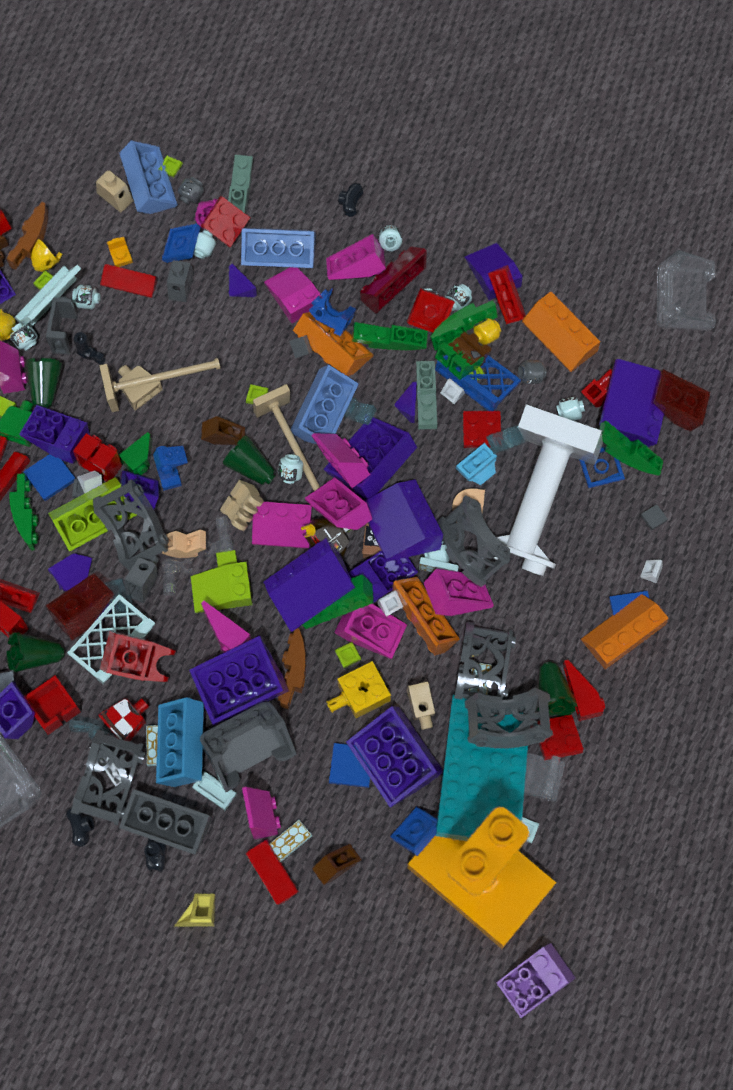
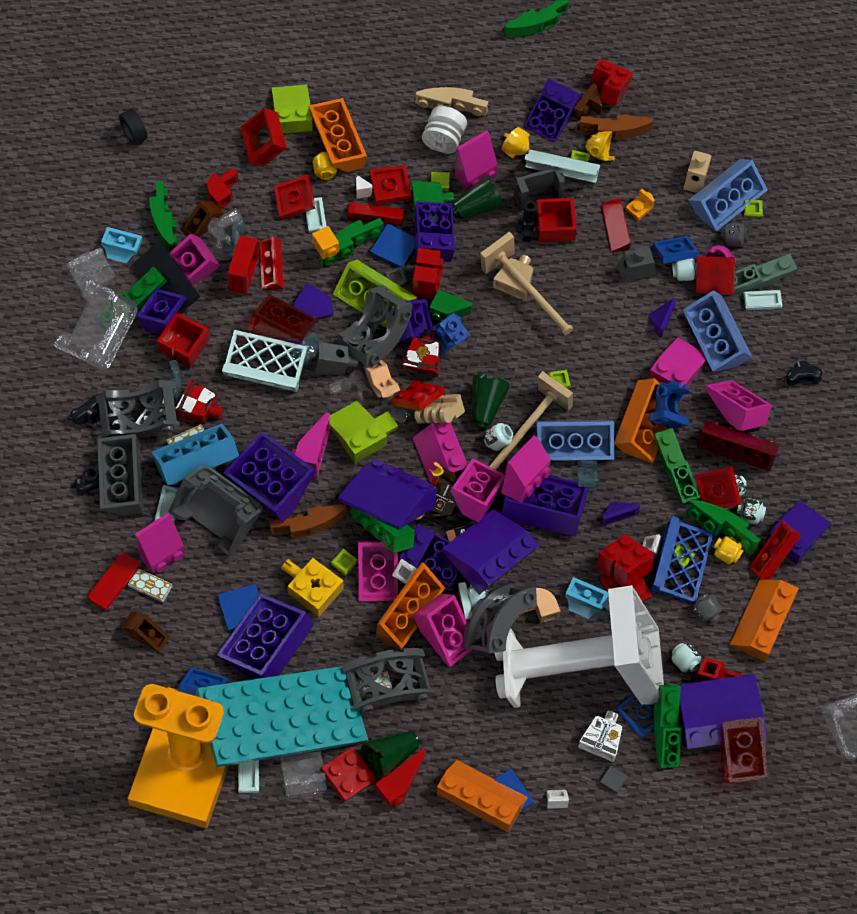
camera: 60 degrees right, 5 degrees down
(21, 531) = (325, 242): none -> light orange brick
(23, 336) = (514, 165): light aqua head -> none
(31, 652) = (223, 304): dark green cone -> none
(85, 297) = (582, 197): light aqua head -> none
(90, 481) = (403, 279): white slope -> none
(100, 325) = (556, 220): none -> red piece
(141, 658) = (253, 390): red brick -> none
(177, 496) = (423, 354): none -> torso
(199, 912) = (56, 539): light yellow slope -> none
(218, 518) = (418, 395): none -> red plate
(221, 431) = (506, 365): reddish brown slope -> none
(263, 199) = (762, 300): none -> light aqua tile
(301, 346) = (625, 394): dark grey tile -> none
(390, 238) = (780, 424): light aqua head -> none
(420, 695) = (328, 635): tan torso -> none
(426, 395) = (633, 524): sand green slope -> none
(460, 410) = (630, 560): none -> red piece
(463, 353) = (689, 536): hips -> none
(526, 734) = (333, 738): dark grey fence -> none
(535, 980) = (113, 844): medium lavender slope -> none
(613, 507) = (602, 736): none -> torso

